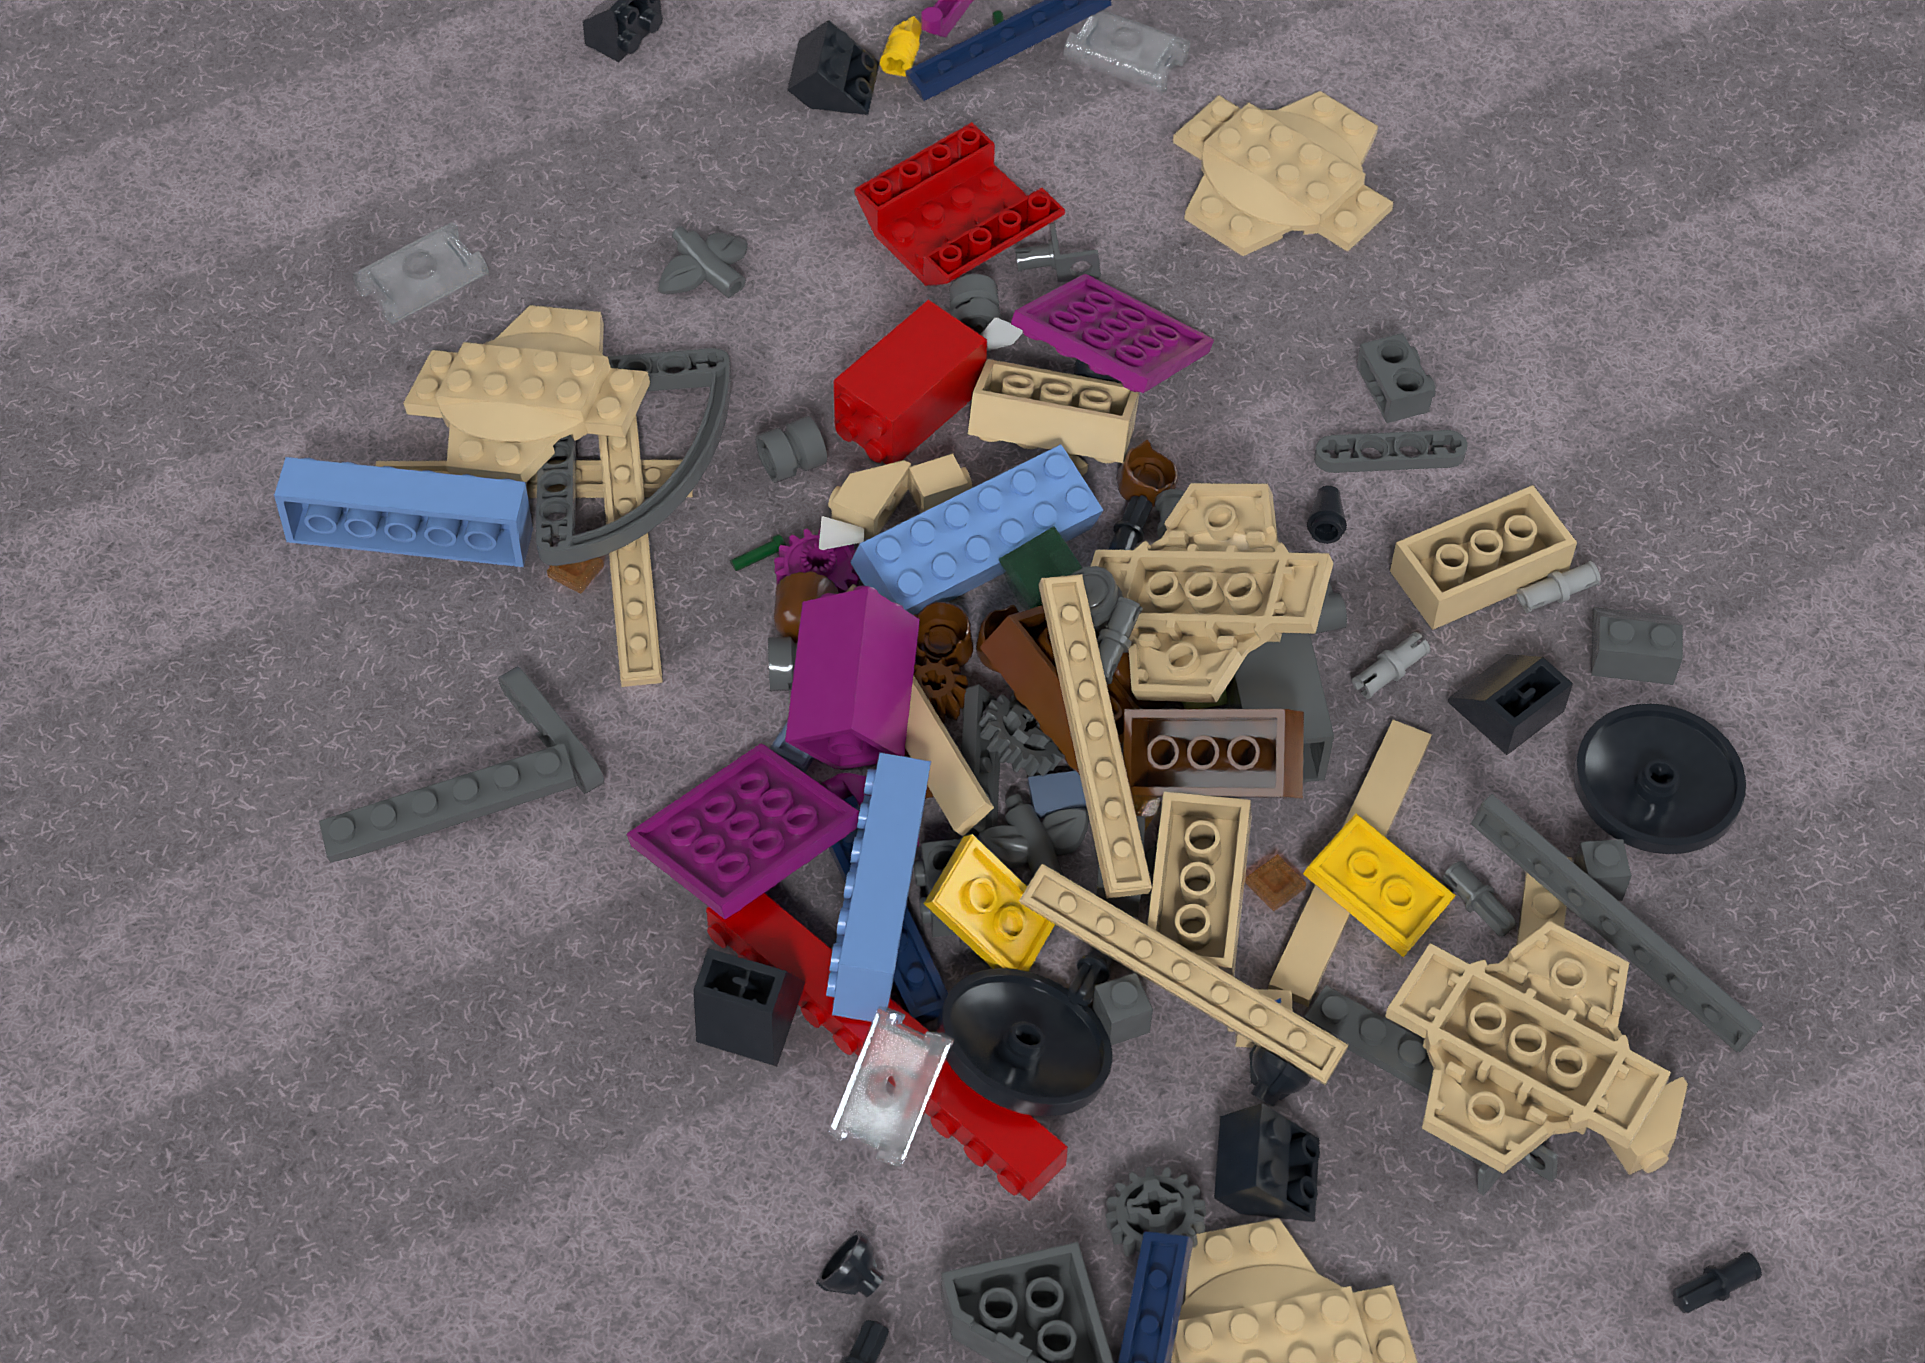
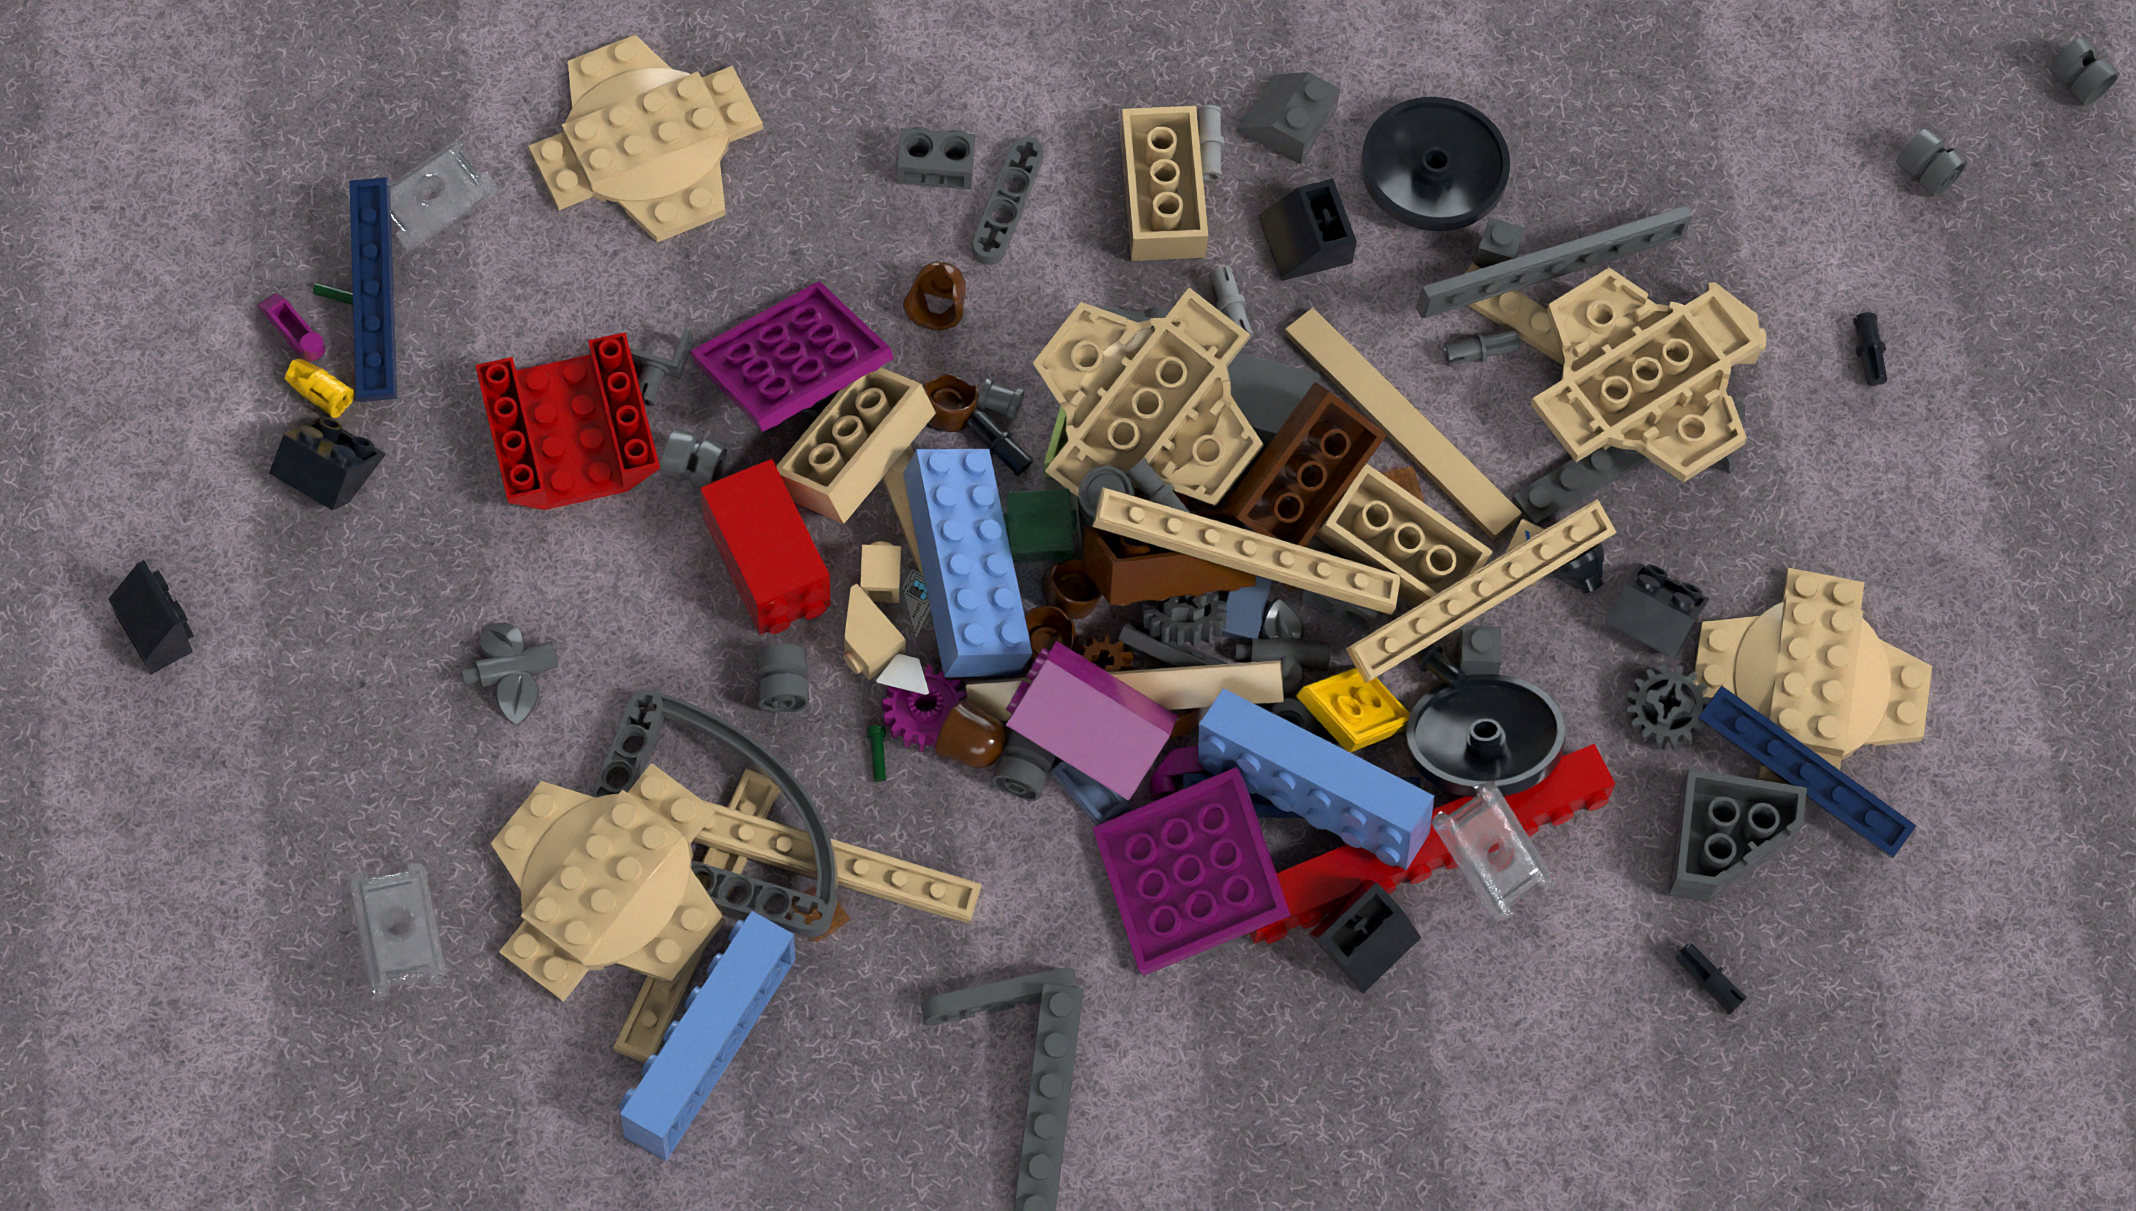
camera: 70 degrees left, 10 degrees up
(852, 1268) = (1623, 950): black piece -> none
(1000, 334) = (730, 452): white sticker -> none
(1250, 427) = (938, 280): none -> reddish brown hair
(1327, 516) = (1055, 280): black cone -> none
(1379, 885) = (1440, 412): yellow tile -> none

